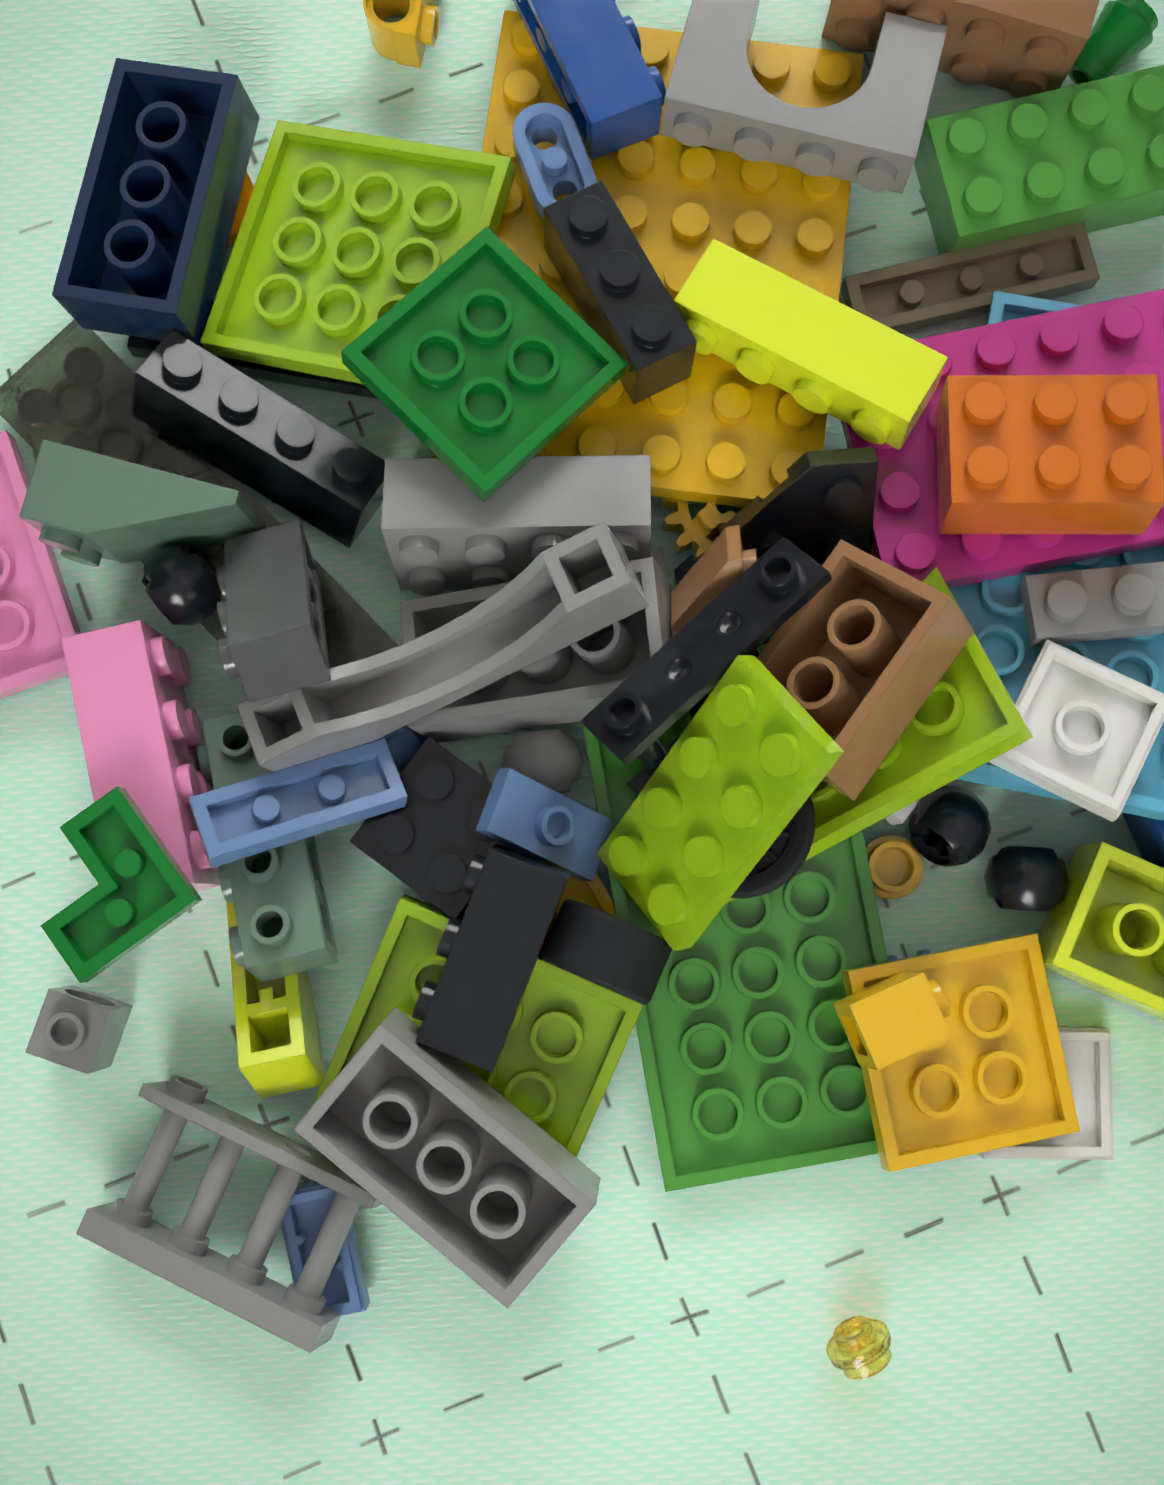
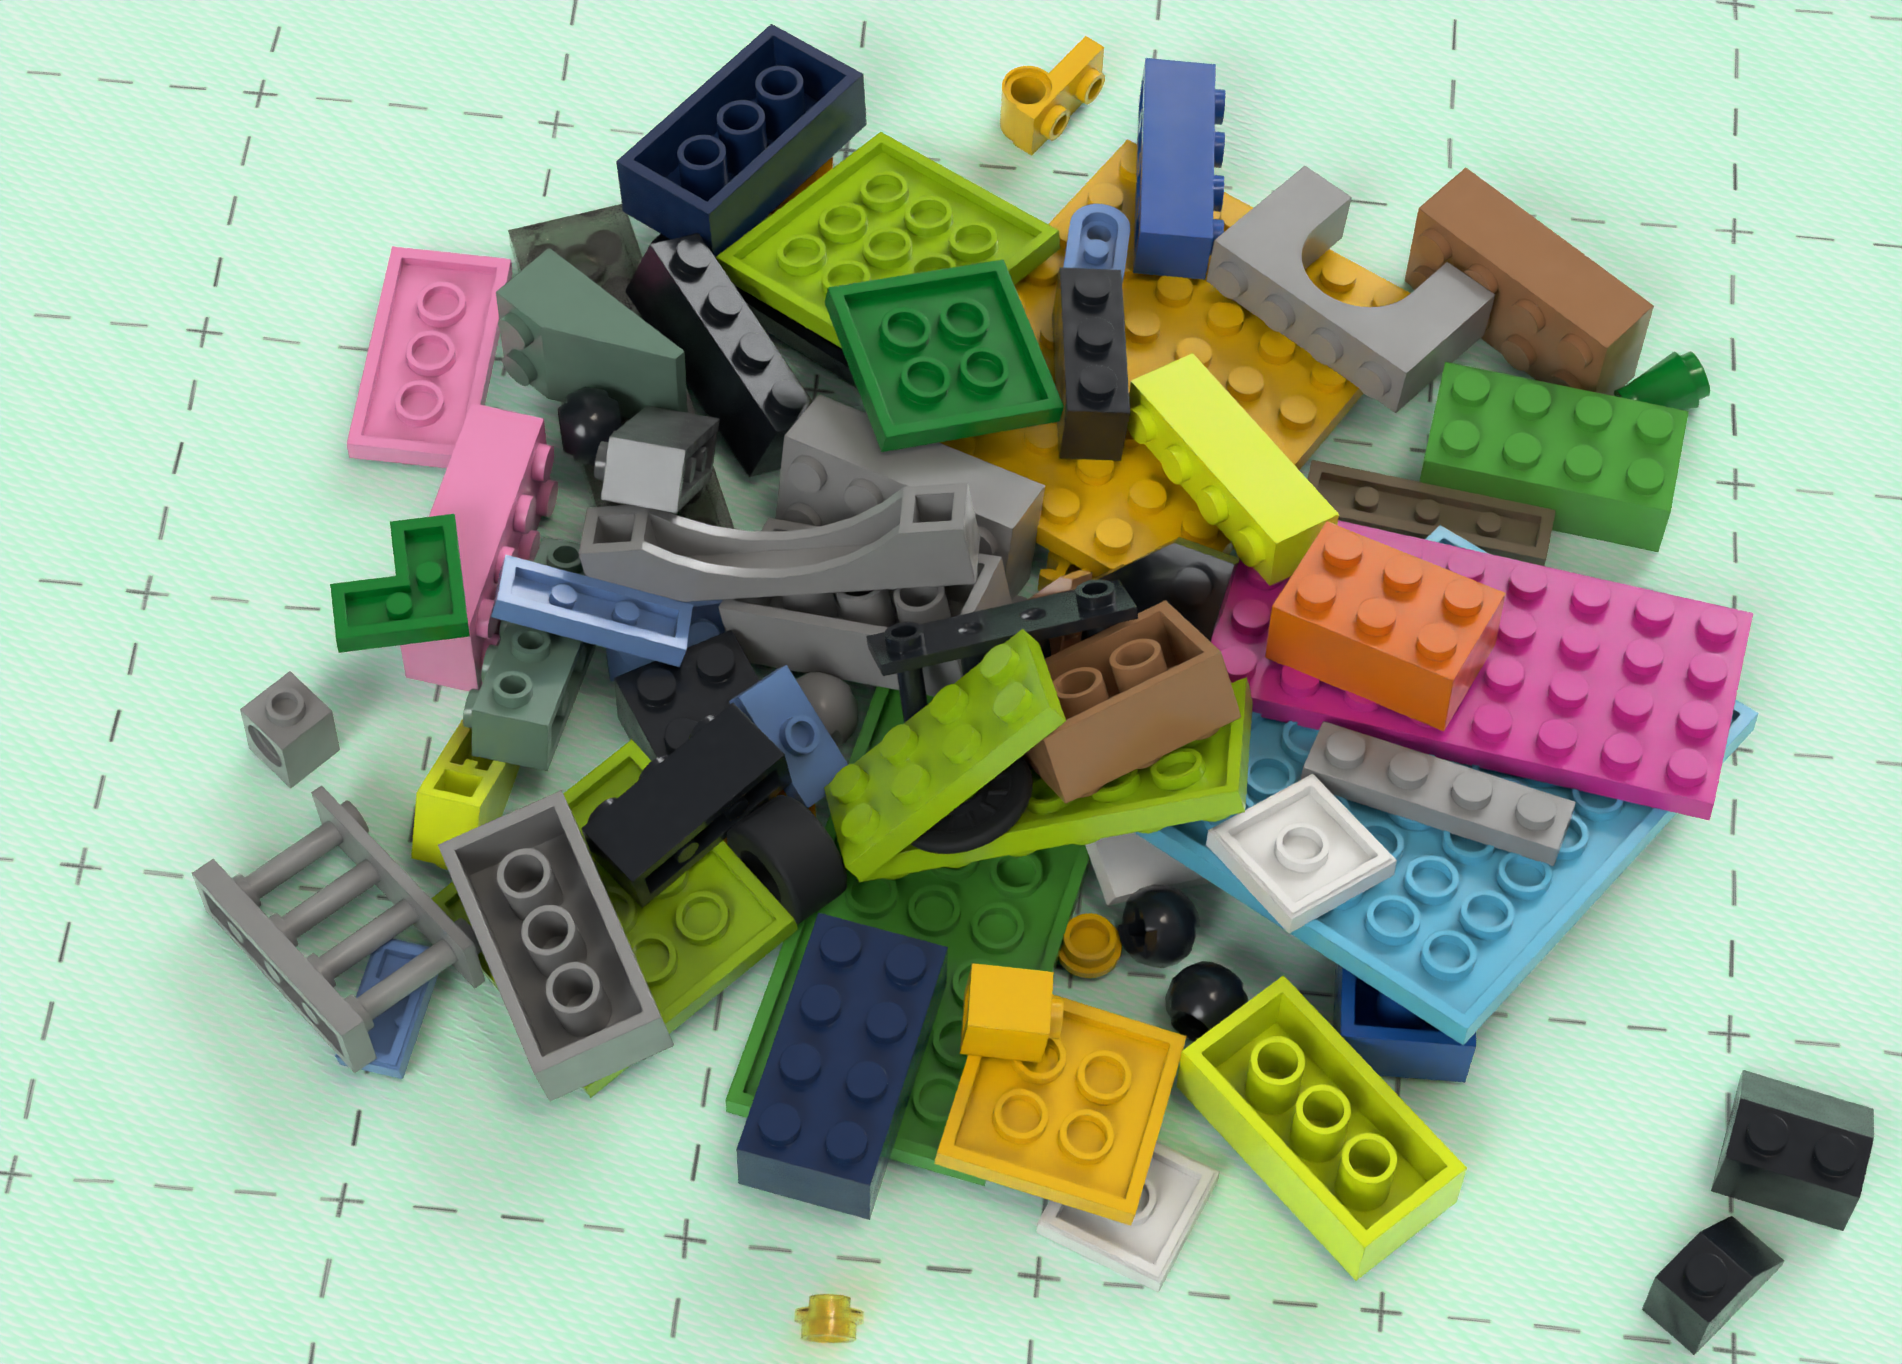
camera: 25 degrees right, 25 degrees down
(764, 1131) = (842, 1066): none -> dark blue brick

